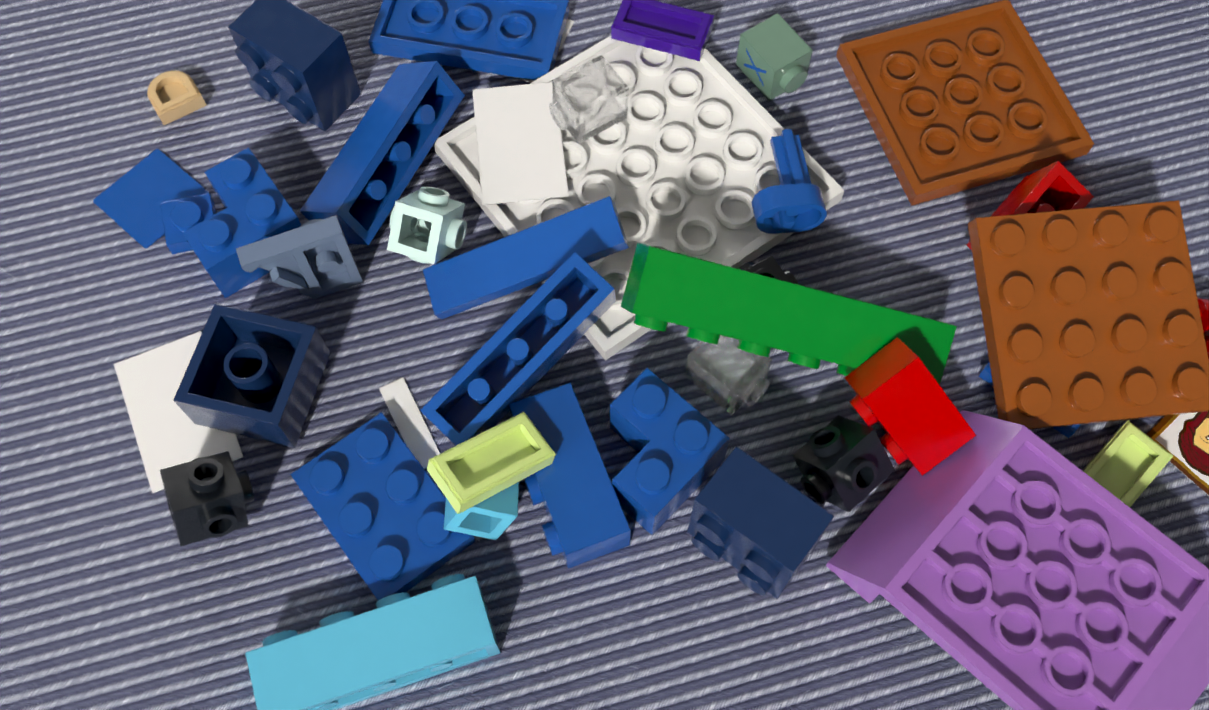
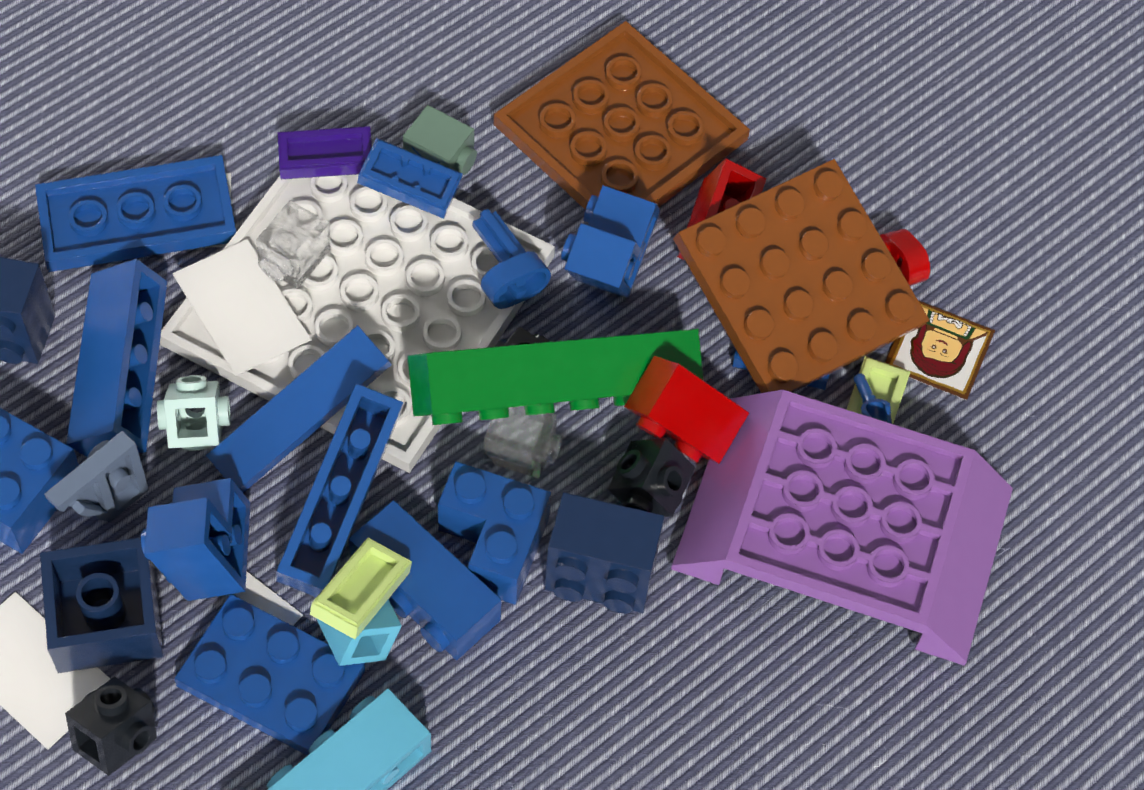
camera: 30 degrees left, 5 degrees down
(371, 349) = (201, 539): none -> blue brick
(729, 75) = (410, 178): none -> blue plate
(905, 207) = (613, 243): none -> blue brick
(1116, 480) = (872, 406): none -> blue hand

